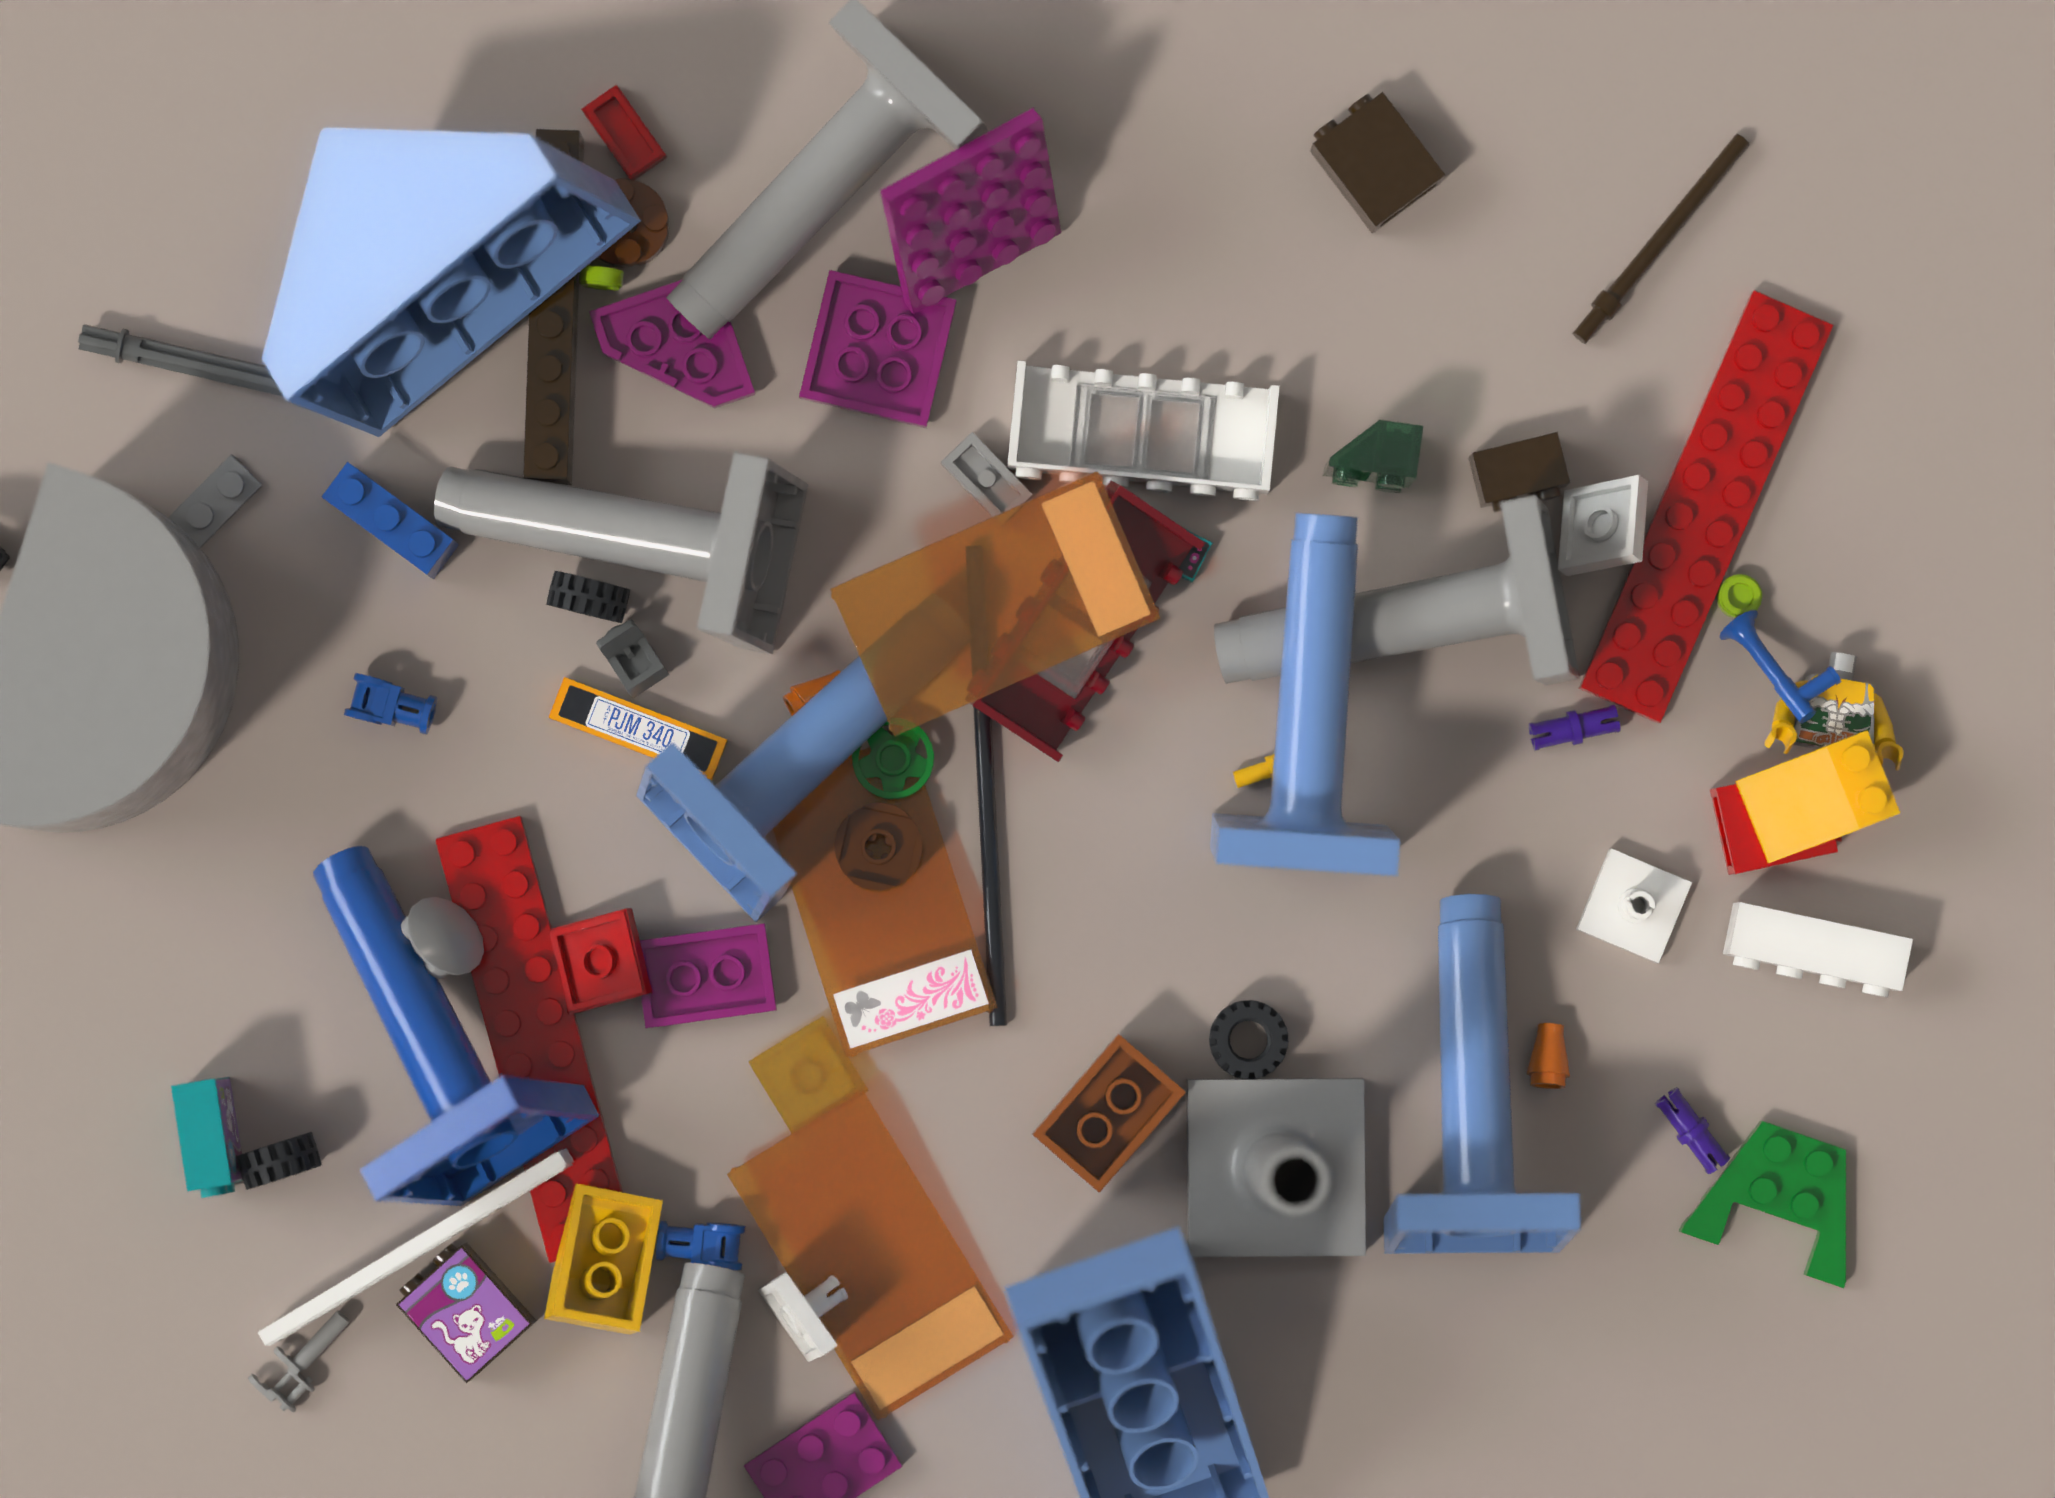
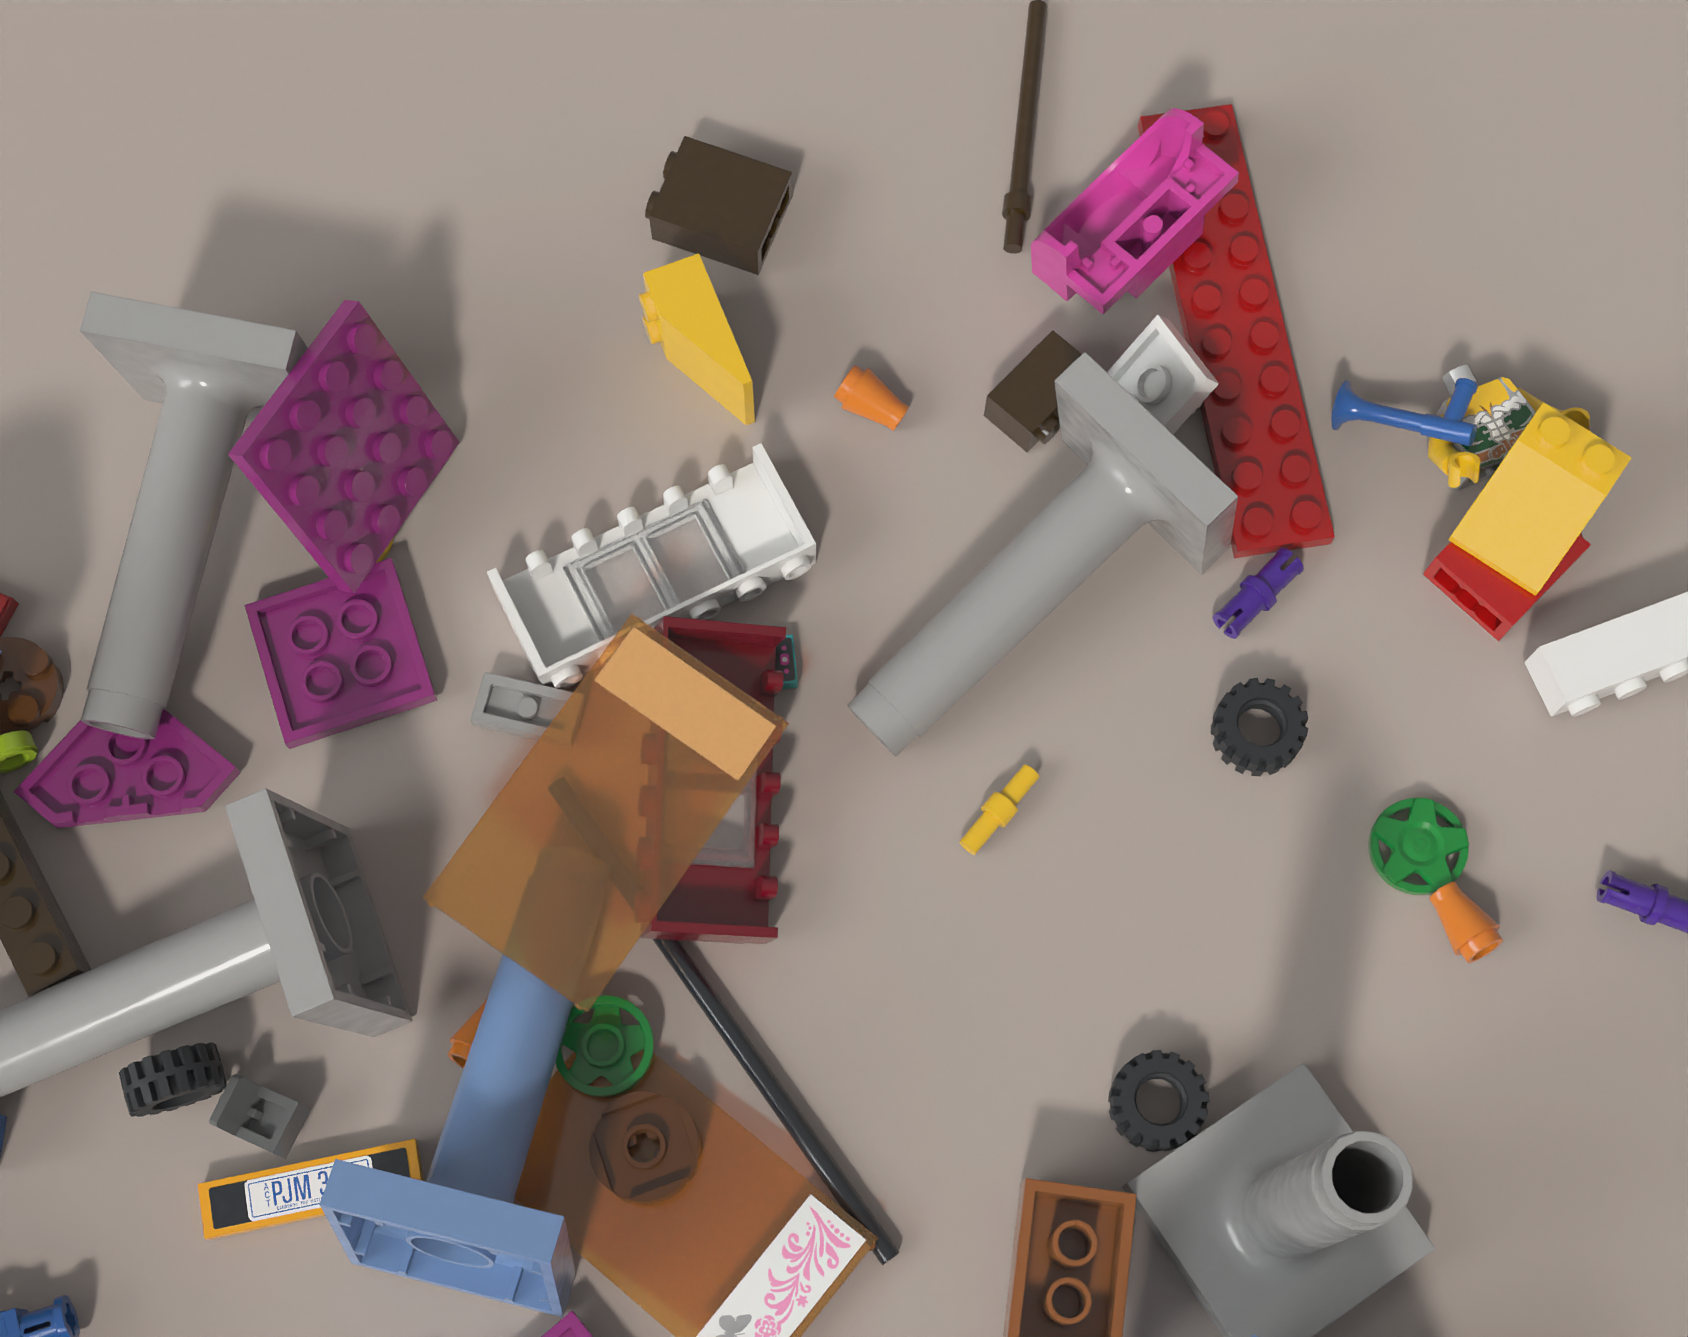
camera: 30 degrees left, 15 degrees down
(1287, 259) = (695, 334): none -> yellow slope
(1305, 809) = (1062, 814): medium blue piece -> none
(1380, 455) = (902, 451): clear green slope -> none
(1388, 392) = (870, 398): none -> orange cone
(1478, 1194) = (1517, 1105): medium blue piece -> none
(1530, 819) = (1271, 700): none -> black tyre
(1558, 983) = (1418, 845): none -> green wheel
(1633, 905) = (1435, 725): white tile -> none
(1676, 381) = (1134, 215): none -> dark pink piece
(1739, 595) = (1320, 383): lime tile -> none

